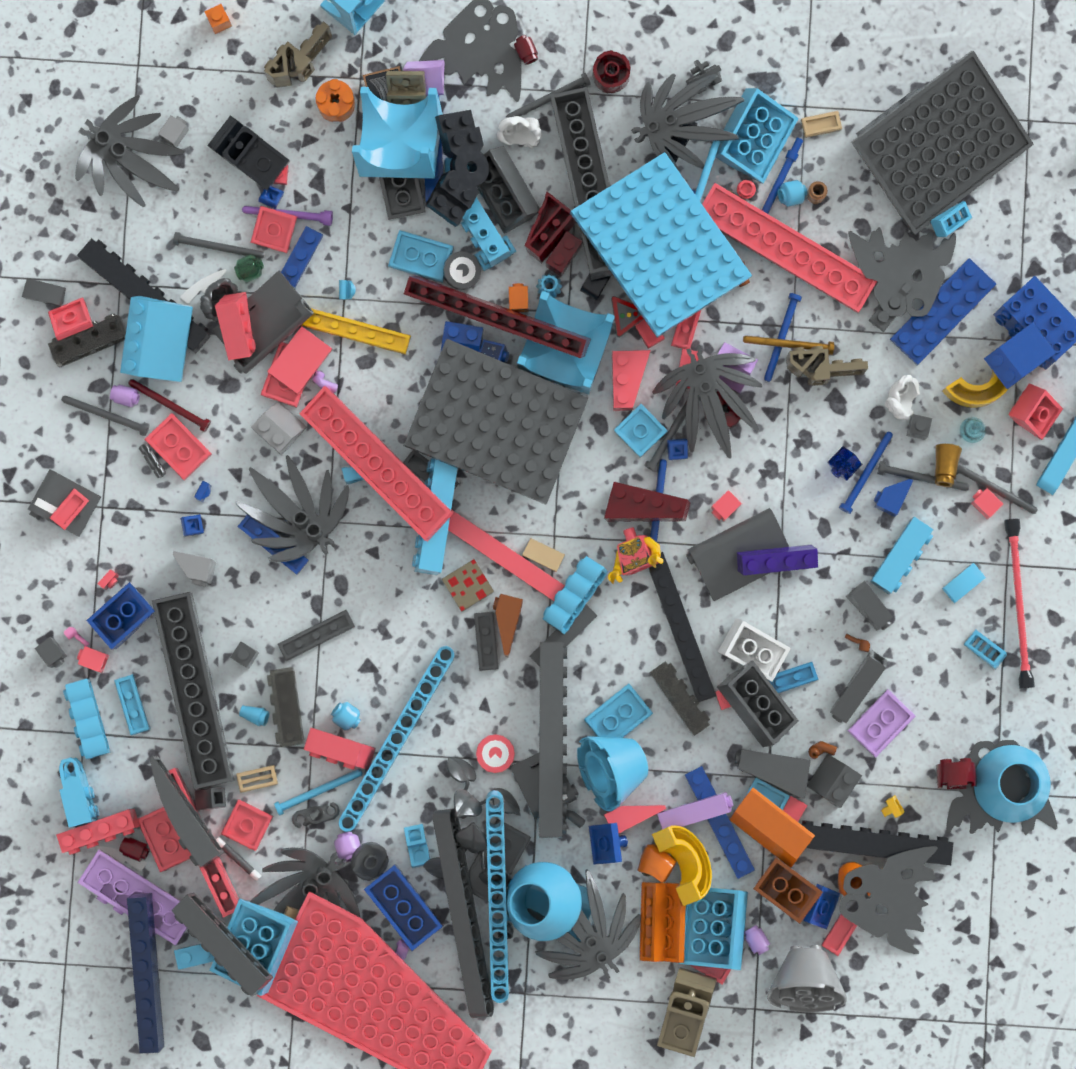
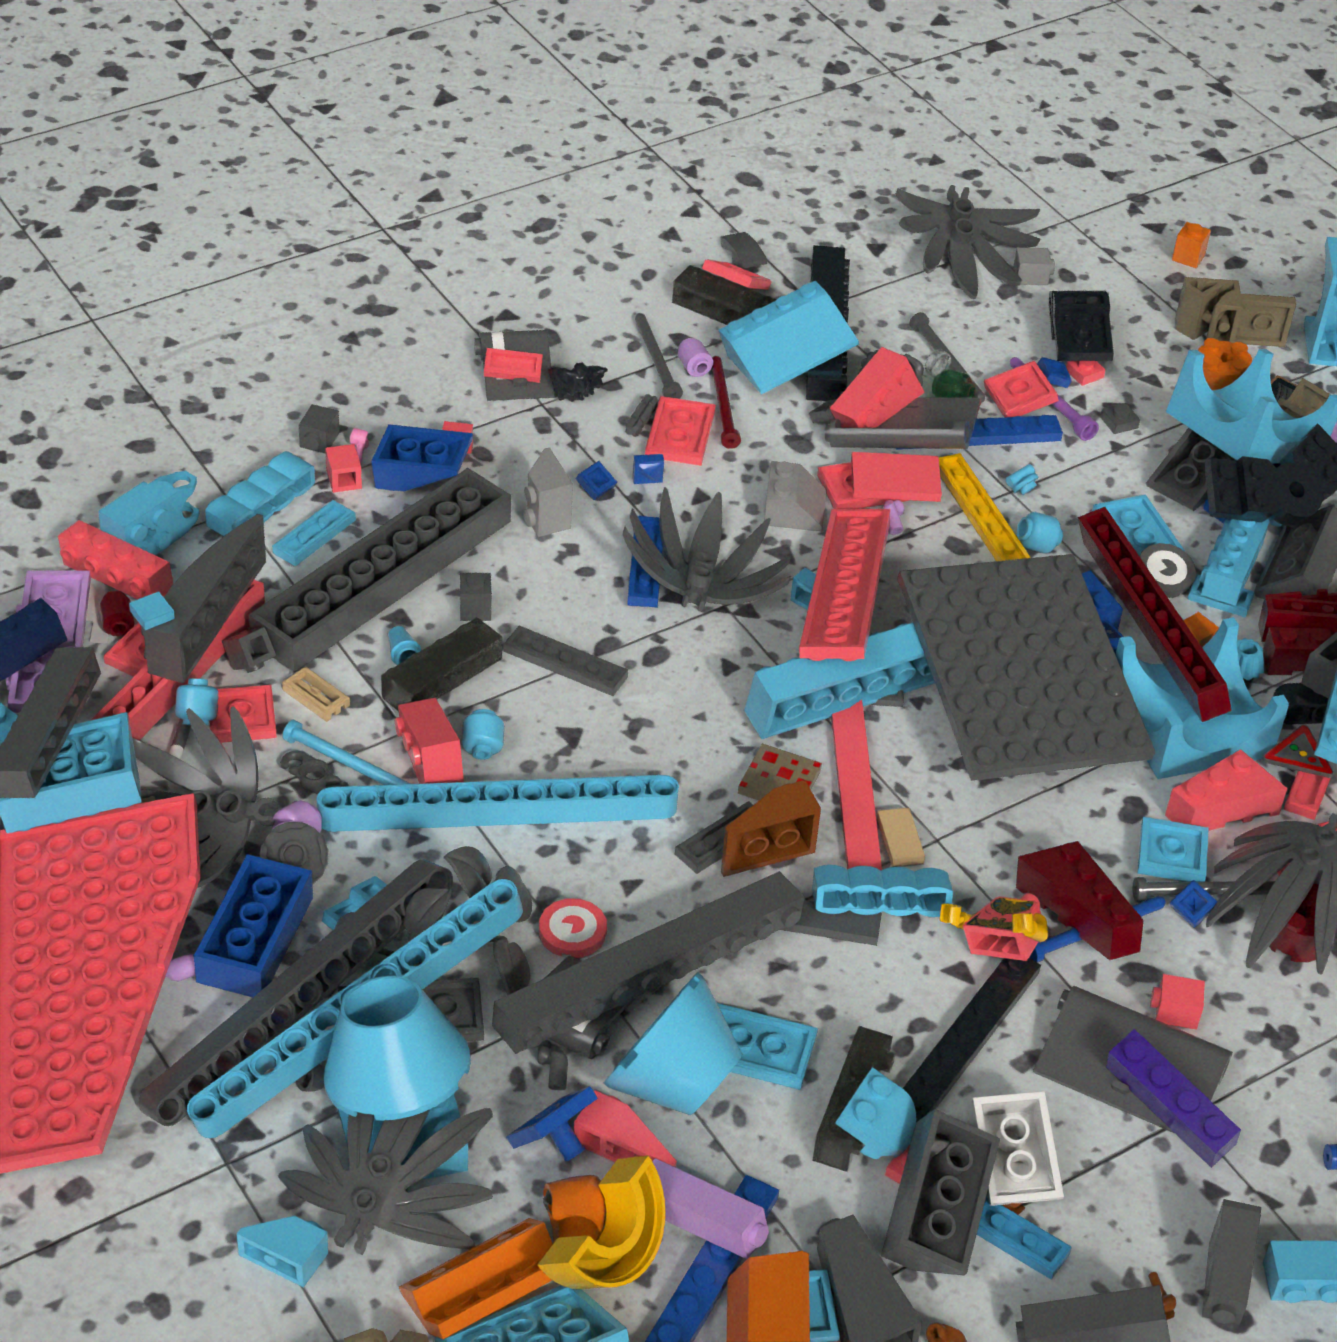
camera: 50 degrees right, 40 degrees down
(102, 479) = (576, 382): none -> black hair
(194, 858) = (151, 610): none -> medium azure tile
(219, 354) = (822, 413): none -> dark grey plate
(221, 259) = (937, 362): none -> clear tile
(237, 850) = (199, 698): none -> medium azure head
(330, 189) = (1120, 418): none -> dark grey plate
(392, 315) = (1039, 532): none -> medium azure head
(593, 997) = (285, 1247): none -> medium azure slope
(703, 702) = (879, 1116): none -> medium azure slope

